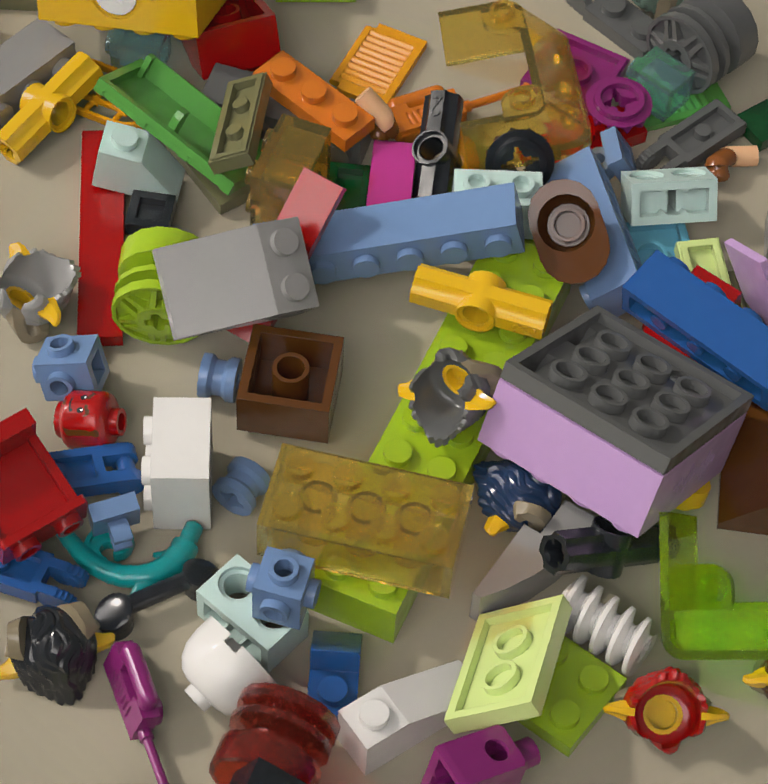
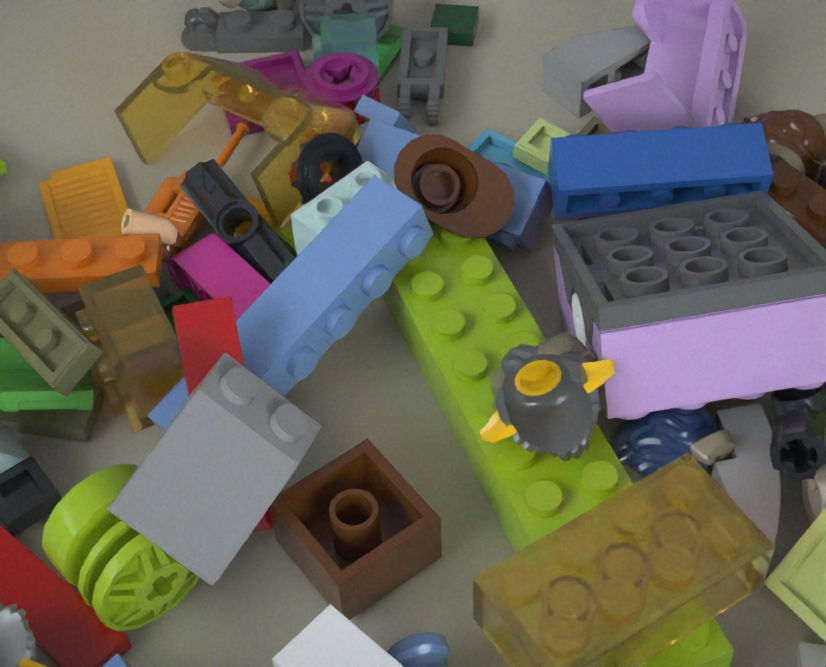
camera: 40 degrees left, 5 degrees down
(219, 377) = (275, 587): medium blue wheel -> none
(480, 301) = (455, 300): yellow piece -> none
(669, 196) = (471, 109): light aqua brick -> none
(731, 157) = (461, 64): arm -> none

